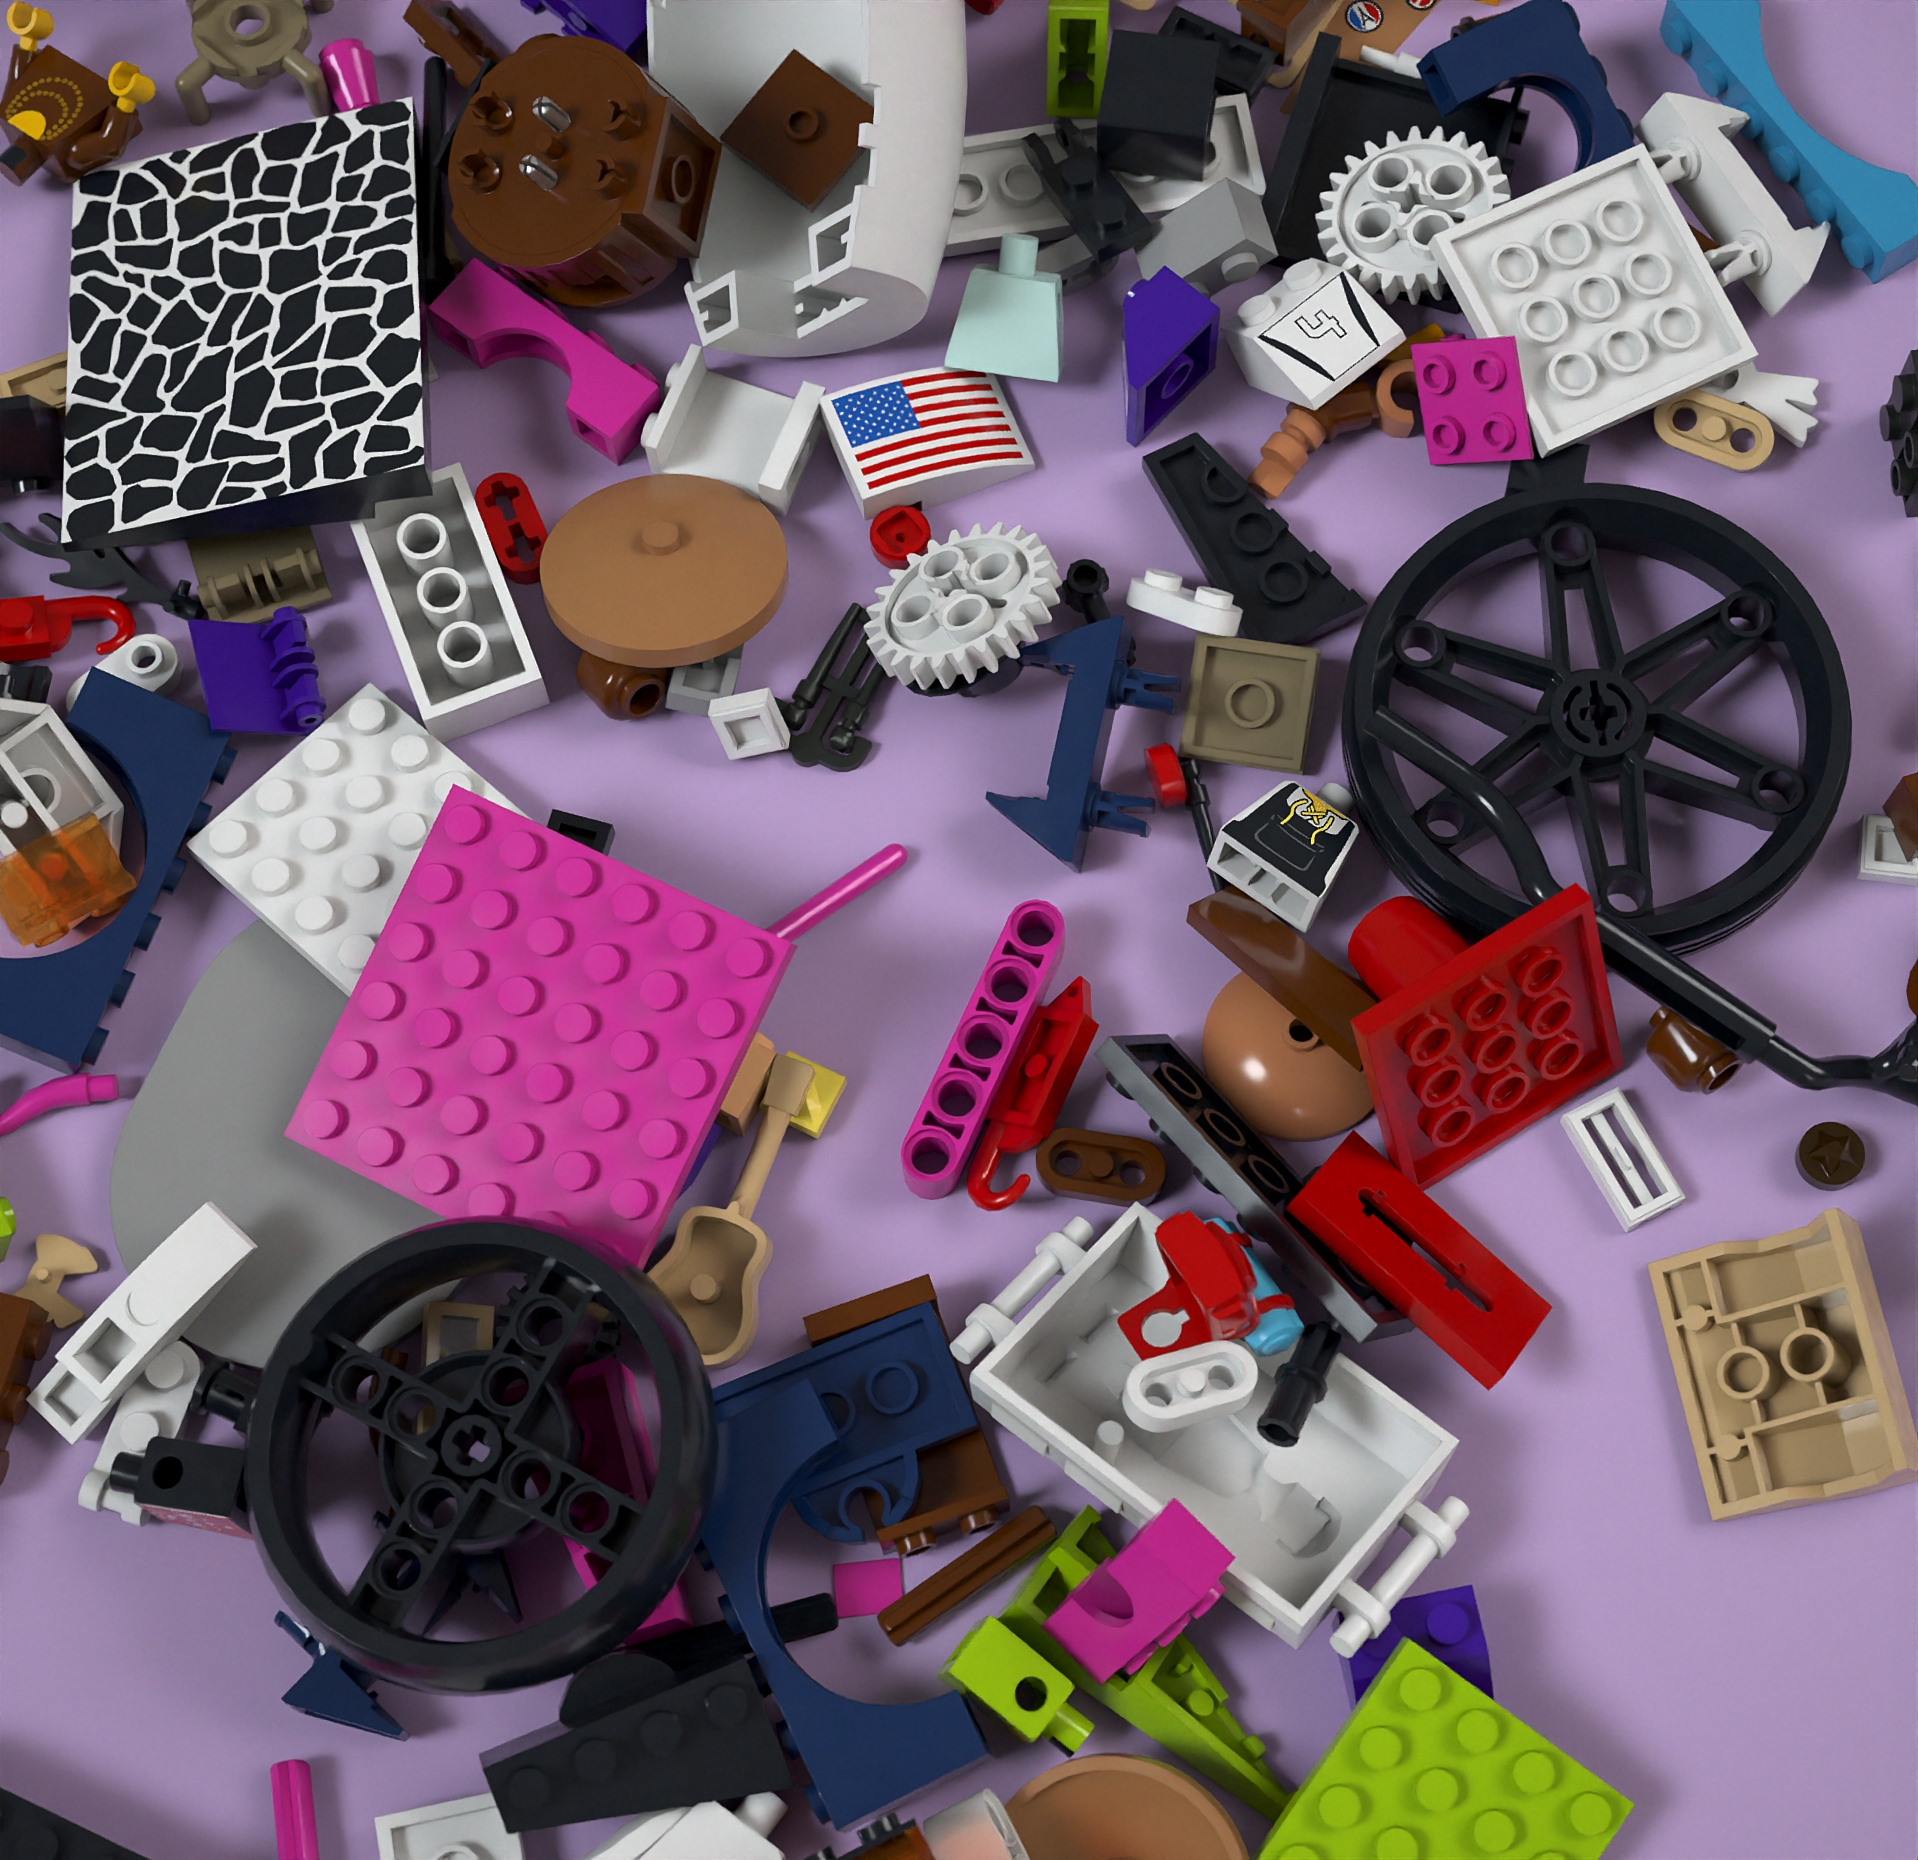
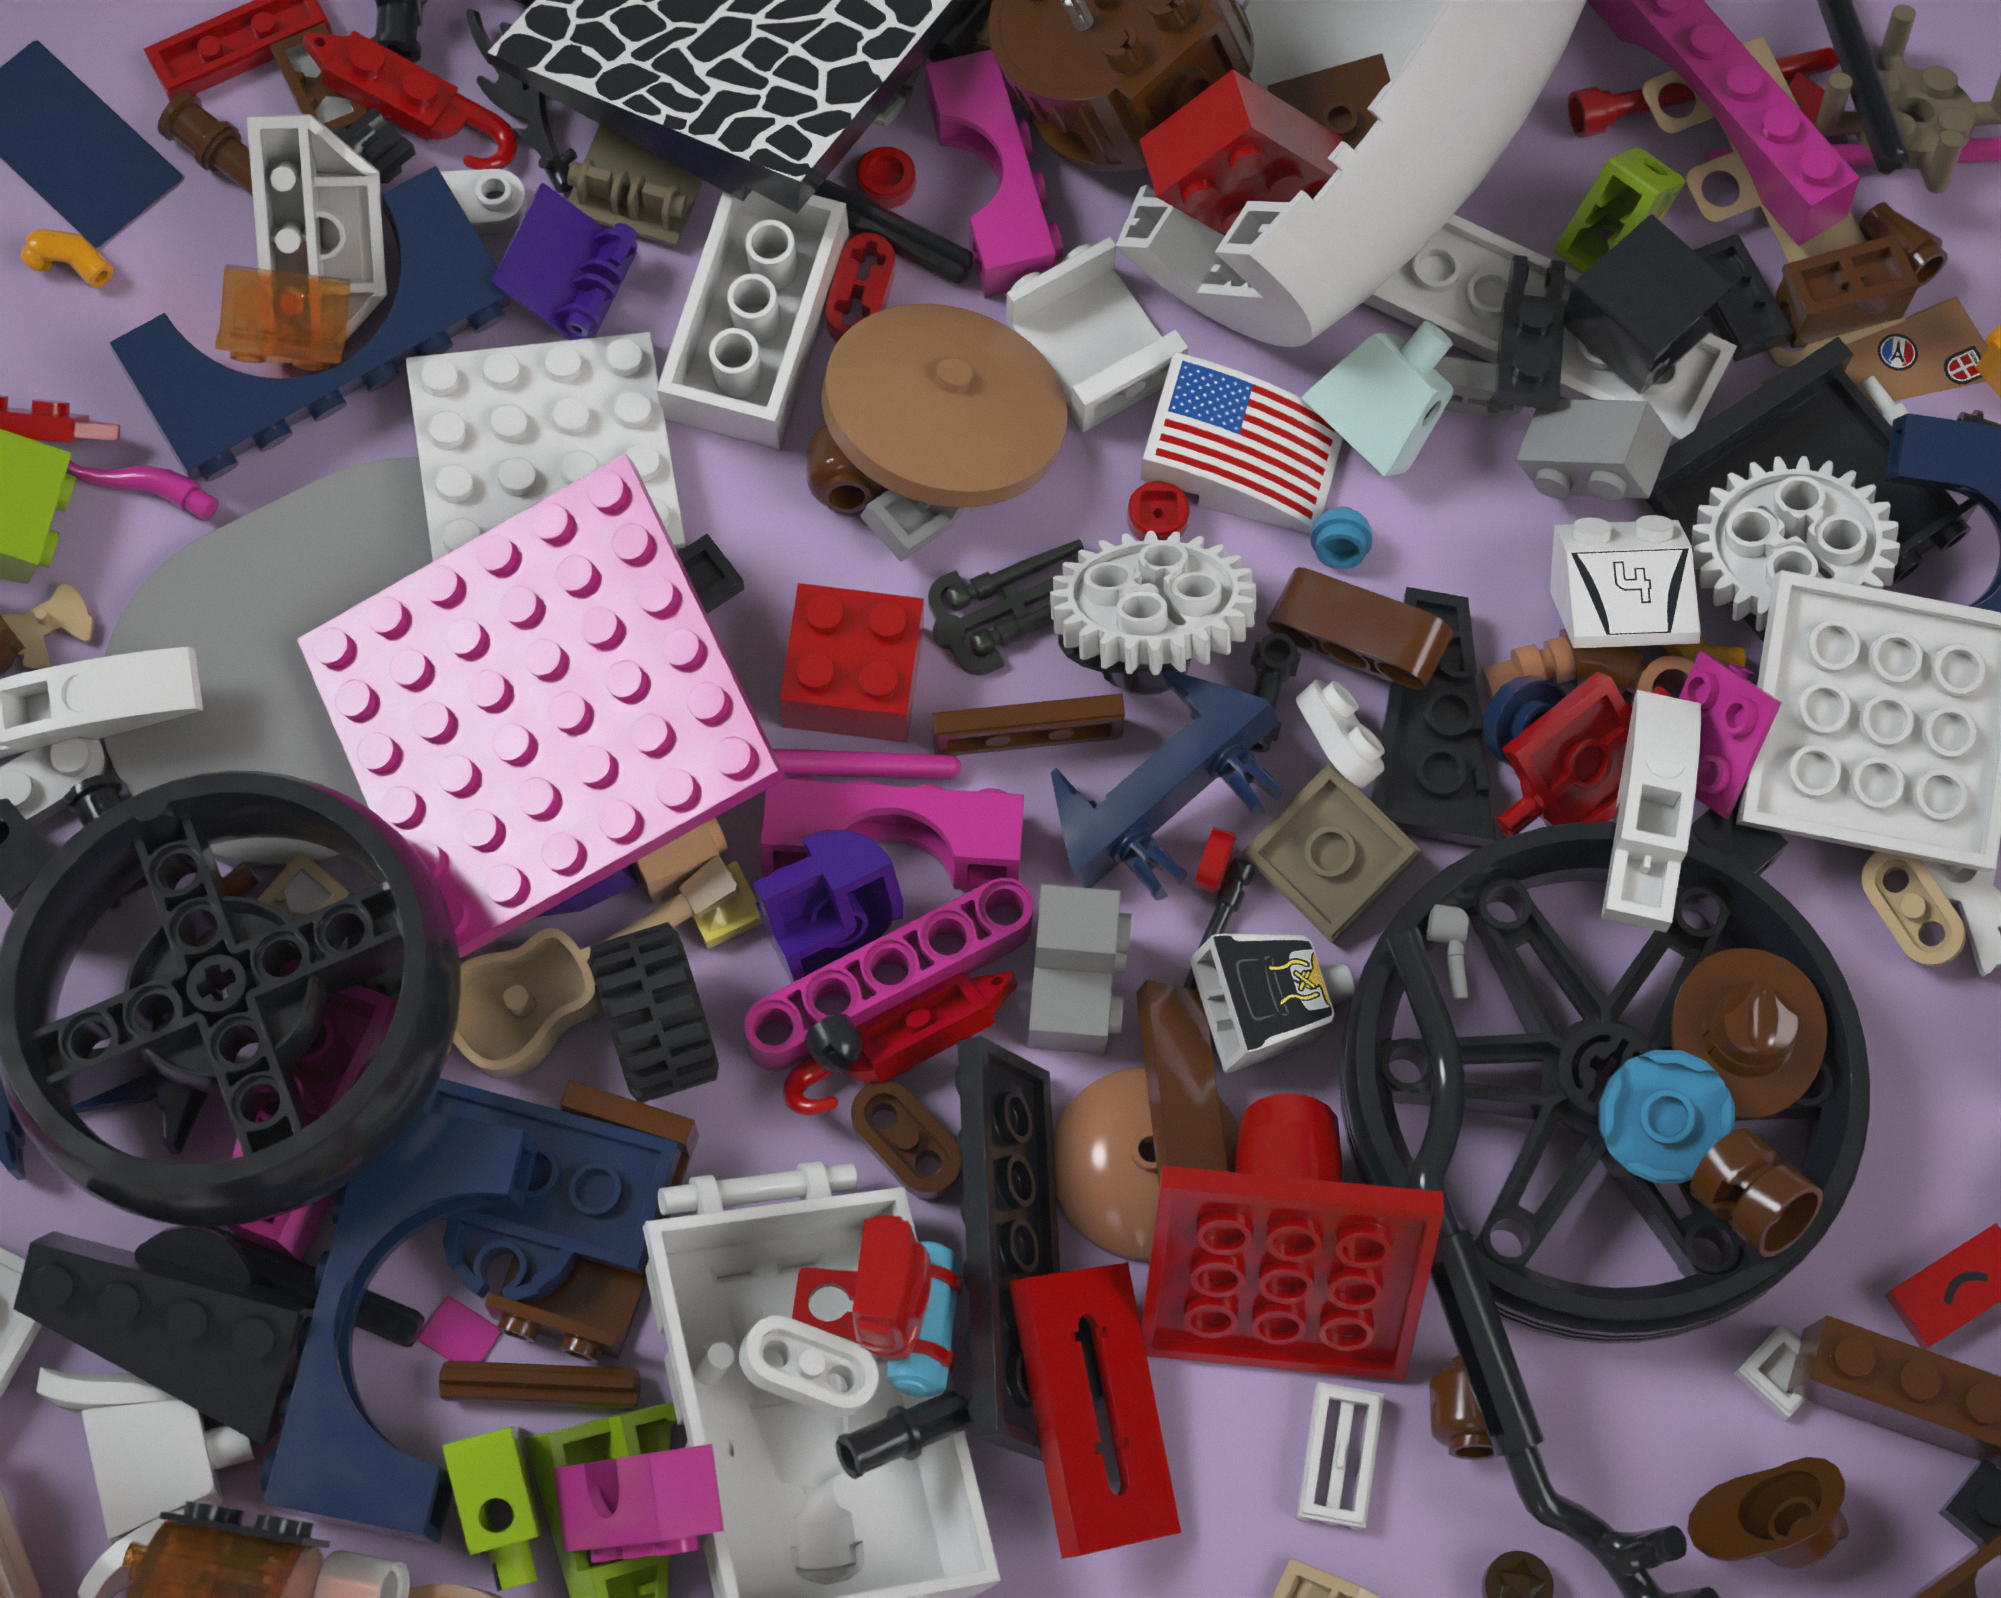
camera: 30 degrees right, 0 degrees up
(461, 424) = (886, 176): none -> red tile
(522, 459) = (904, 235): none -> black axle
(749, 724) = (914, 573): white tile -> none
(756, 826) = (852, 662): none -> red brick
(759, 198) = (1235, 149): none -> red brick
(830, 1212) = (654, 1012): none -> black tyre
(896, 1026) = (829, 901): none -> dark purple brick
(934, 776) = (1028, 725): none -> reddish brown tile
(957, 894) = (967, 831): none -> dark pink arch
(989, 1131) = (834, 1042): none -> black hinge
(1060, 455) = (1341, 538): none -> dark azure plate
(1120, 931) = (1075, 958): none -> light grey brick
(1135, 513) = (1360, 628): none -> reddish brown beam
(1165, 348) = (1488, 511): dark purple slope -> none
(1319, 495) = (1515, 709): none -> dark blue plate
(1386, 490) = (1571, 758): none -> red plate
(1404, 687) = (1451, 926): none -> light grey hand
(1484, 486) = (1653, 811): none -> white slope
(1672, 714) = (1664, 1114): none -> dark azure tile
(1681, 607) = (1754, 1026): none -> reddish brown hat
(1781, 719) = (1764, 1199): none -> reddish brown wheel

